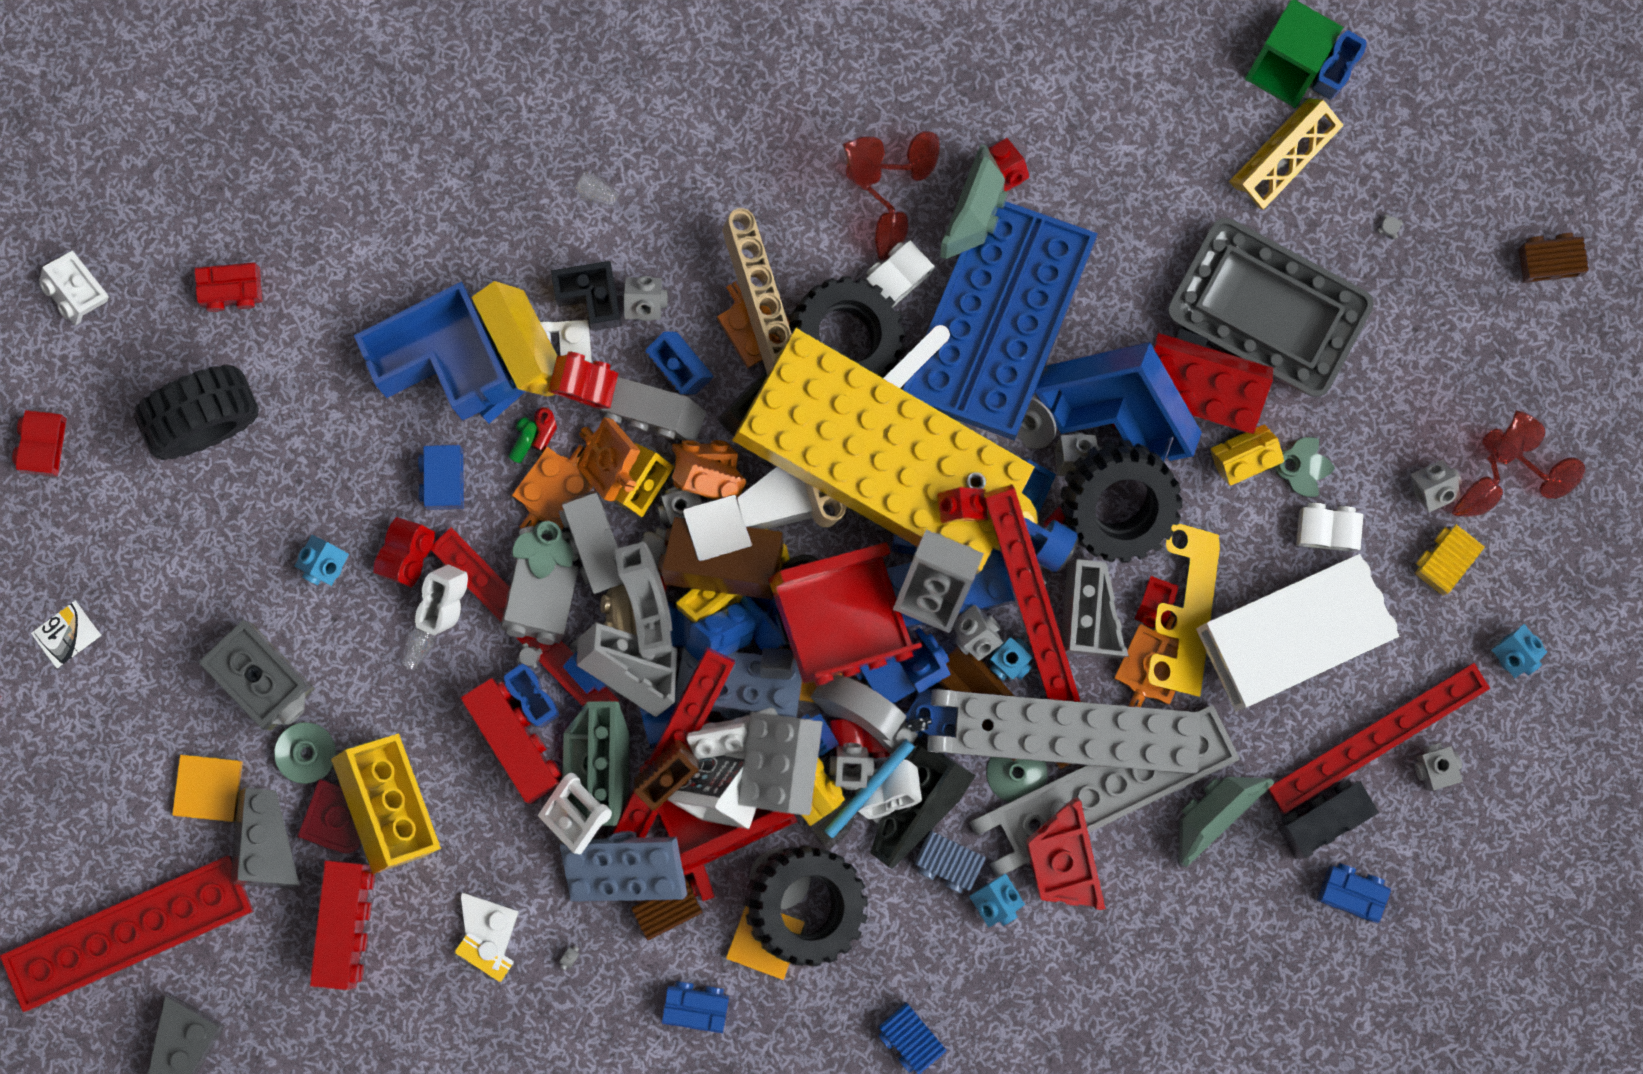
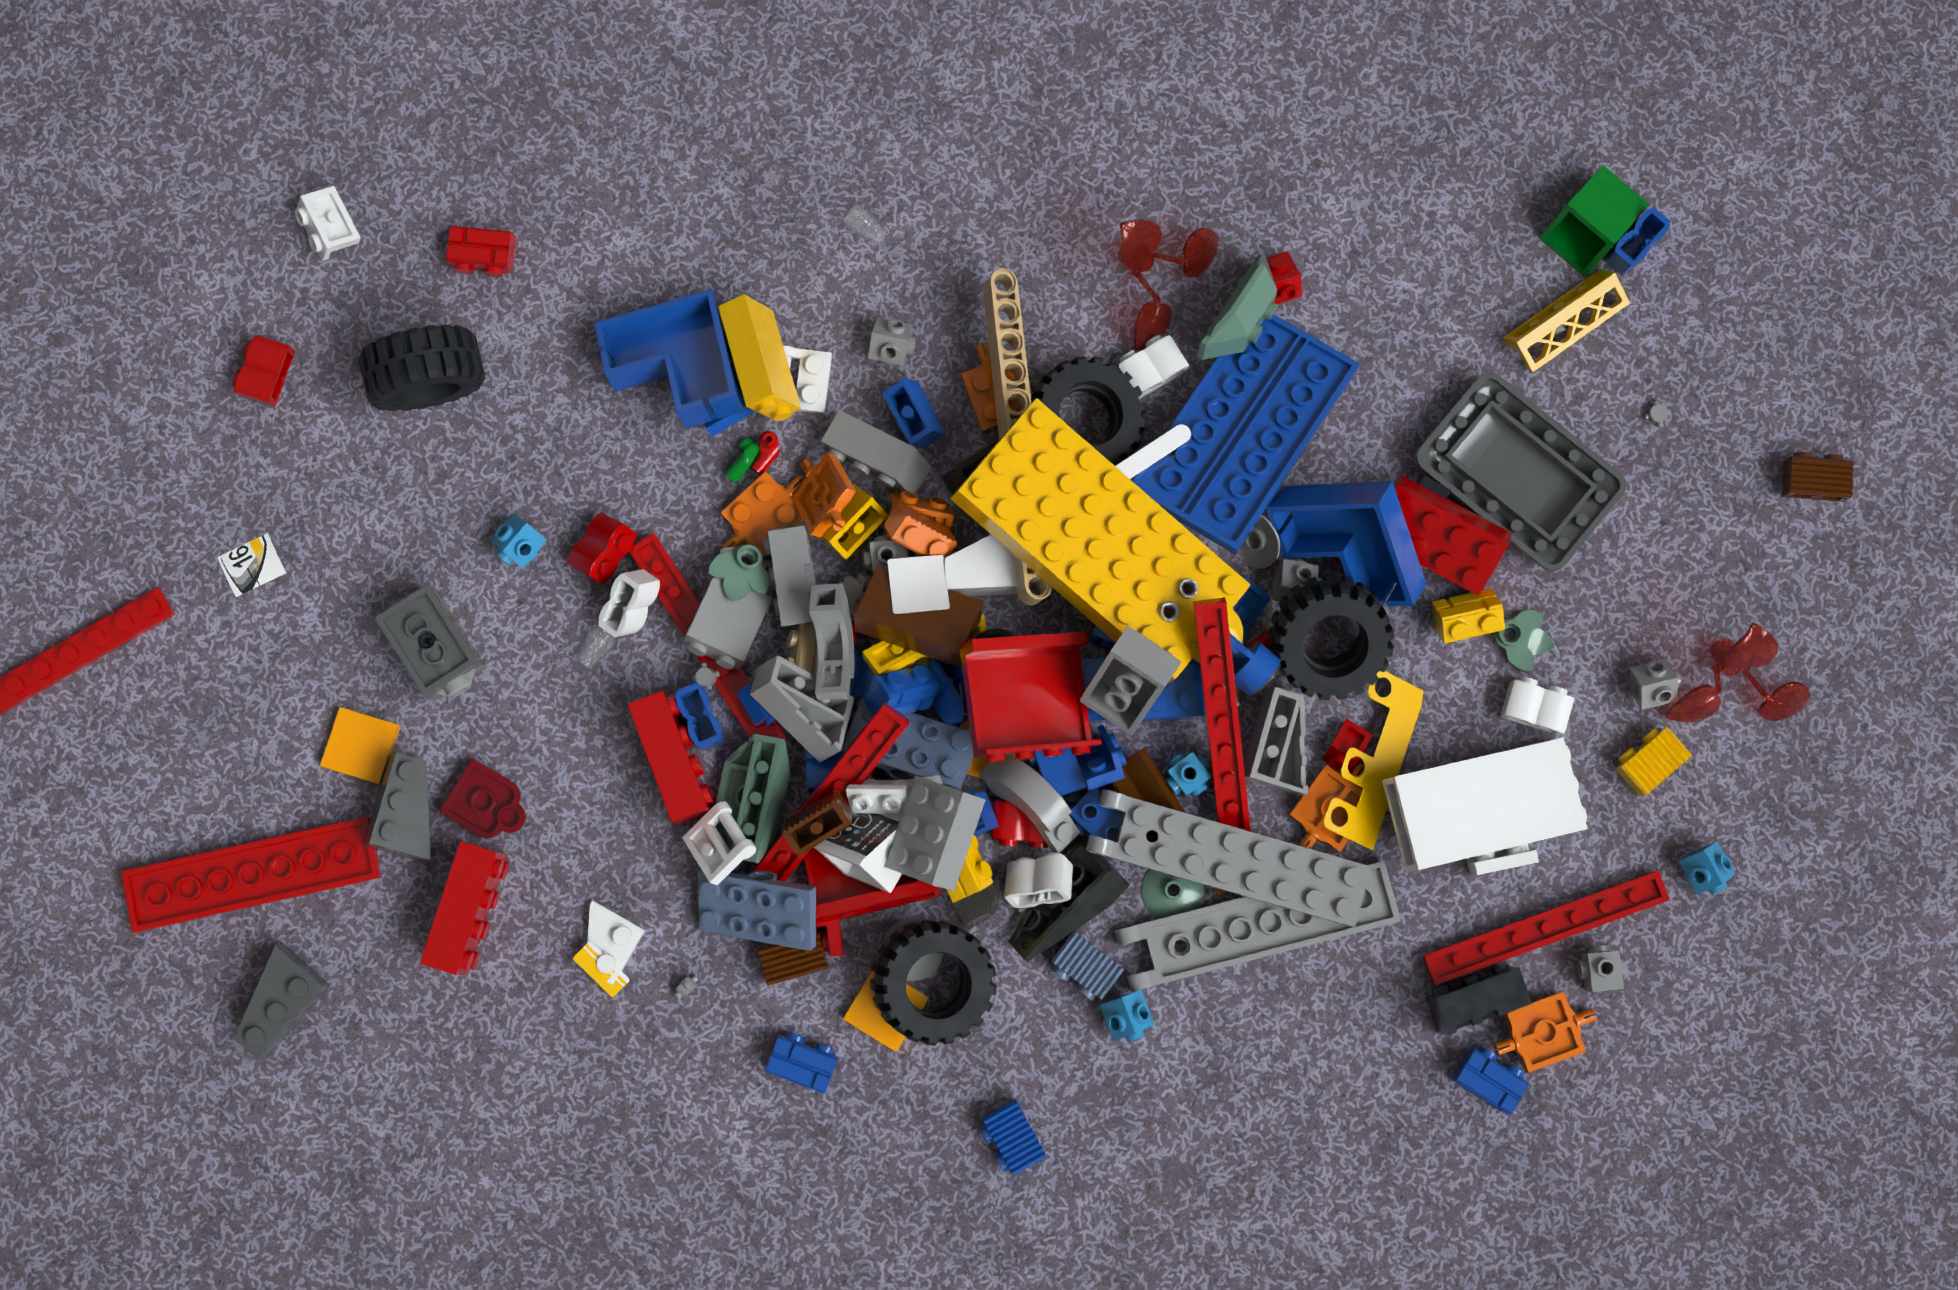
camera: 15 degrees right, 0 degrees up
(289, 753) = (448, 727): sand green dish -> none
(385, 803) = (533, 795): yellow brick -> none
(442, 477) = (654, 481): blue brick -> none
(583, 381) = (814, 411): red brick -> none
(593, 285) = (842, 318): black brick -> none
(776, 663) = (951, 732): flat silver slope -> none
(851, 776) = (1002, 860): light grey brick -> none
(872, 785) = (1020, 876): dark azure bar -> none
(918, 723) = (1082, 821): black piece -> none
(962, 505) = (1170, 609): red bracket -> none
(977, 633) = (1159, 741): light grey brick -> none
(1065, 860) = (1203, 987): red wing -> none
(1215, 812) = (1365, 970): sand green wedge -> none
(1324, 681) = (1502, 860): none -> white bracket
(1396, 837) = (1545, 1032): none -> orange plate

